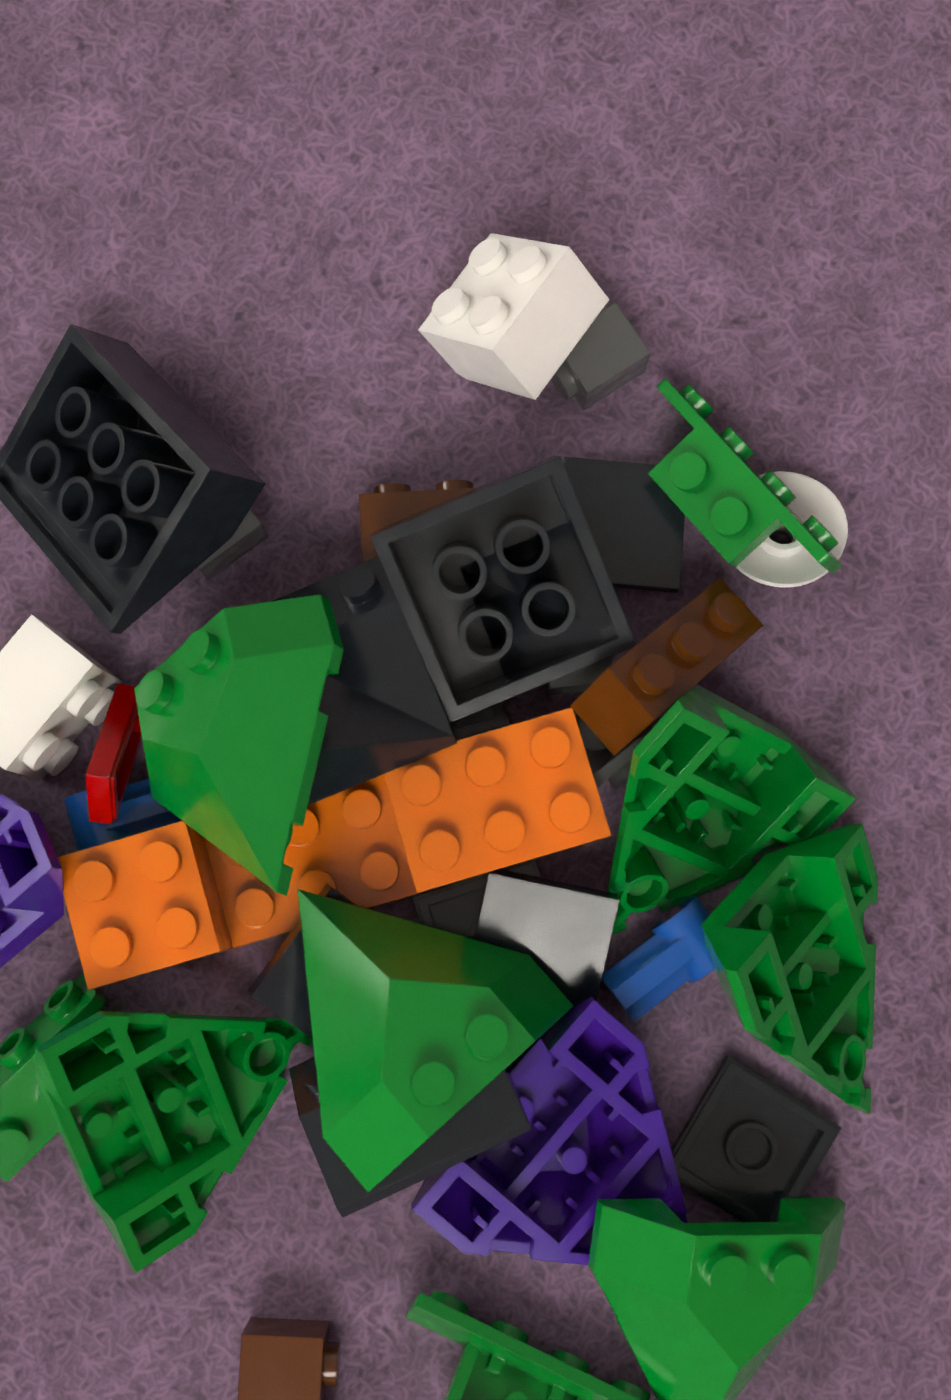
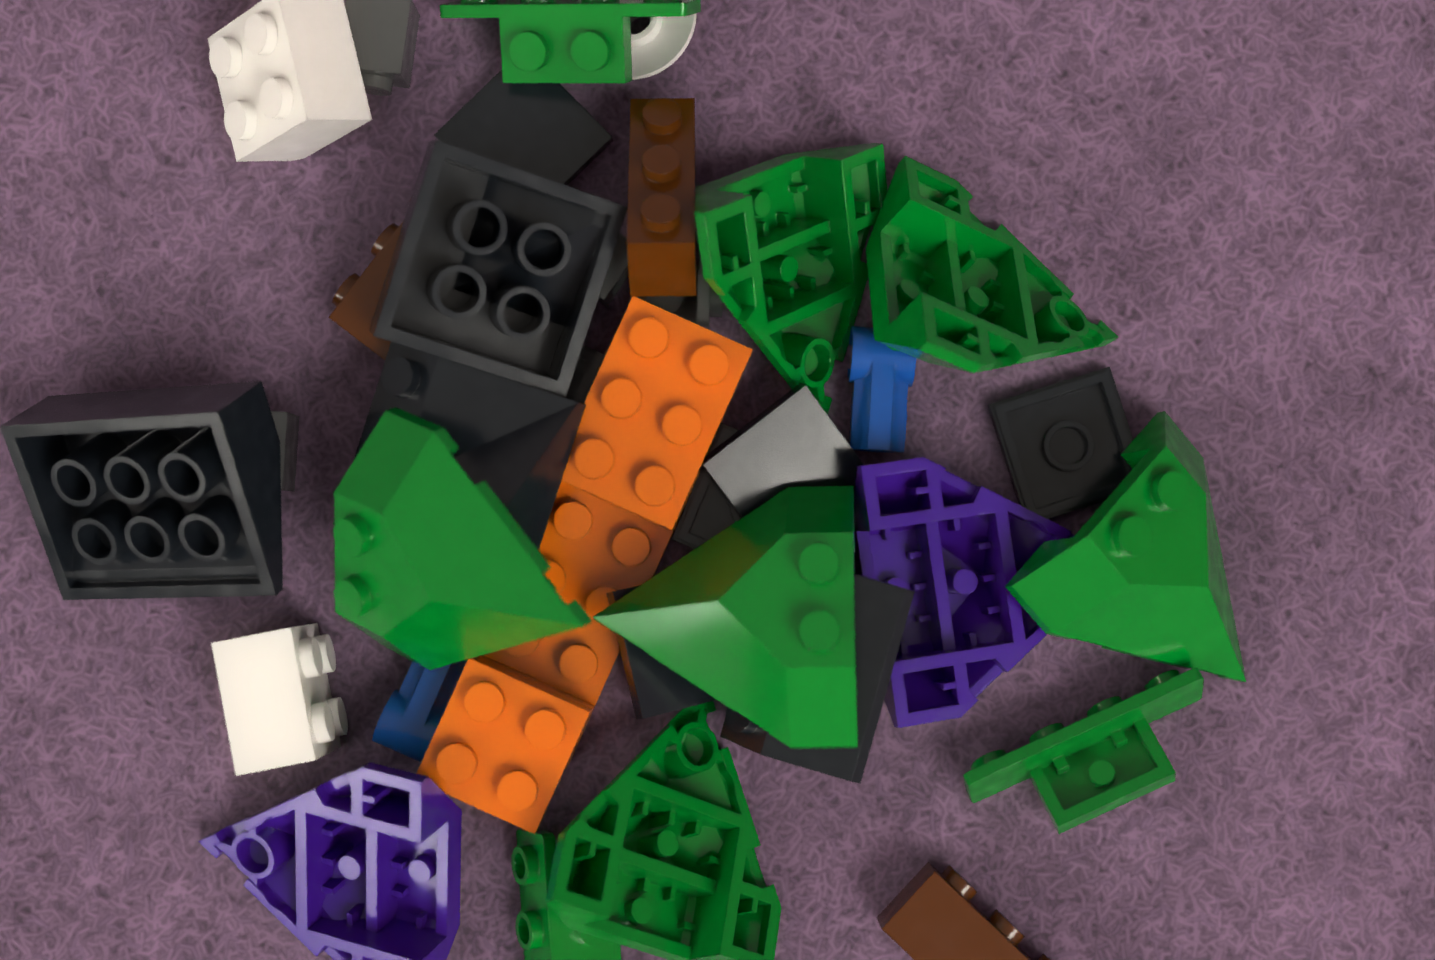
camera: 50 degrees left, 5 degrees up
(113, 756) = (371, 671): red tile -> none

